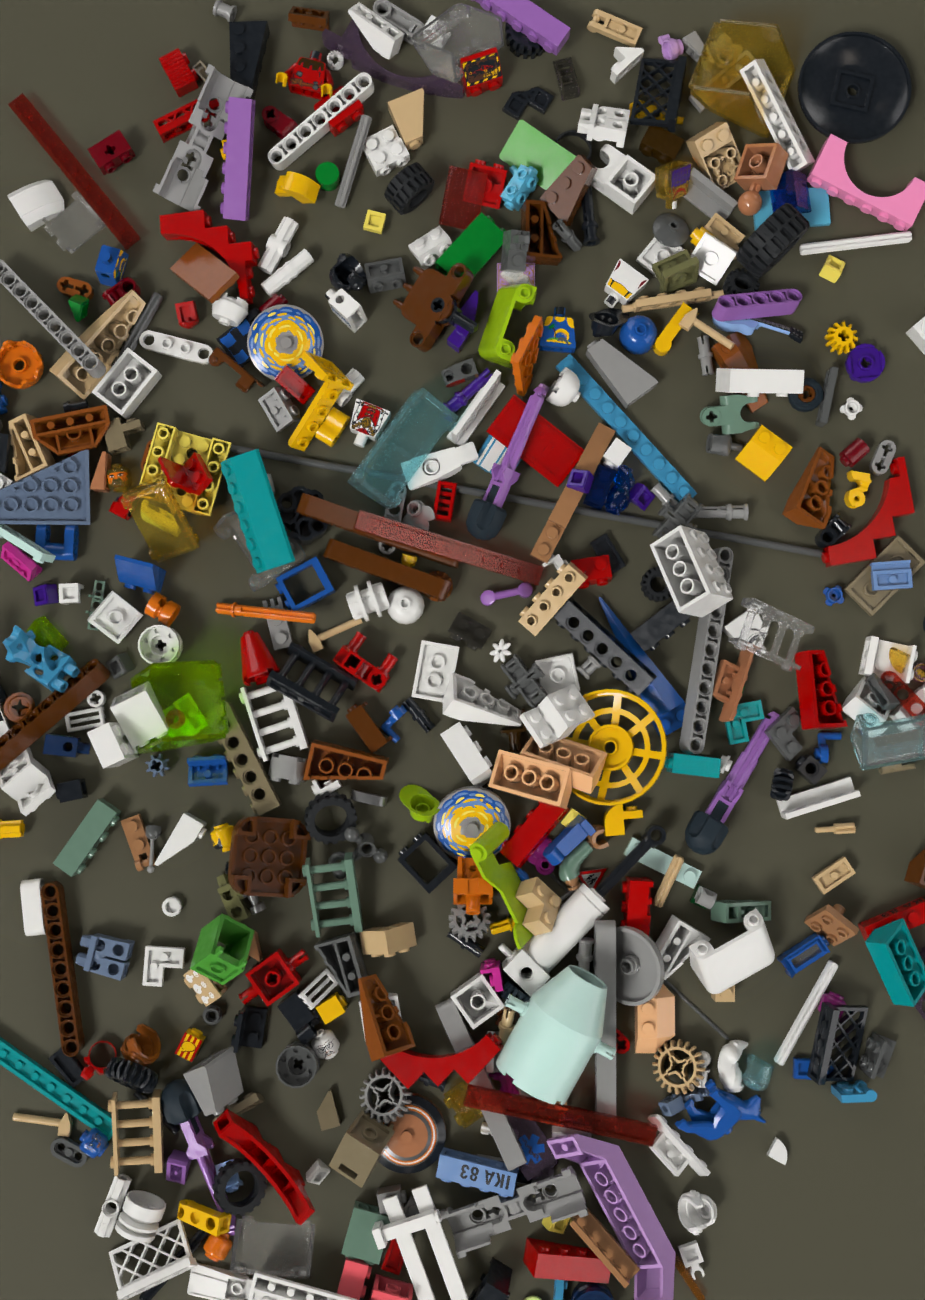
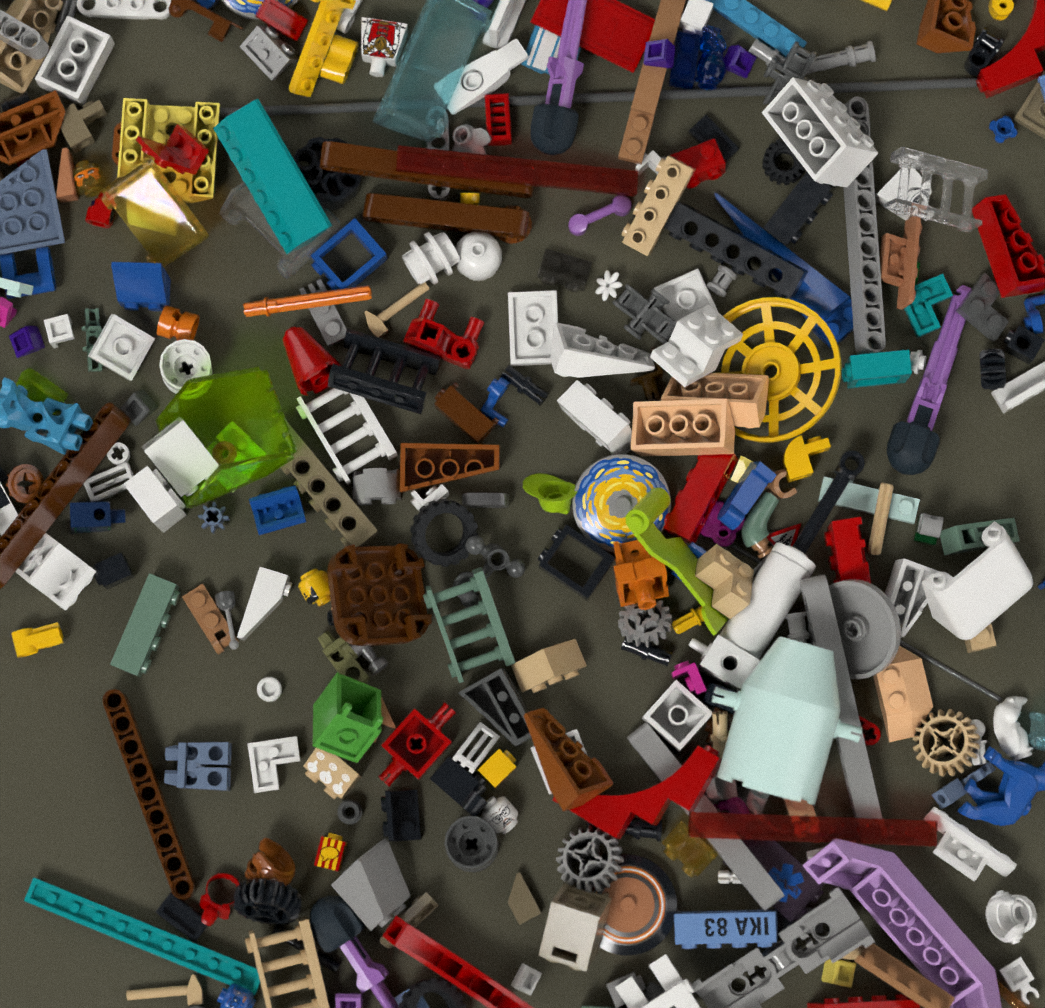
camera: 10 degrees left, 5 degrees down
(32, 907) = (97, 727): white beam -> none

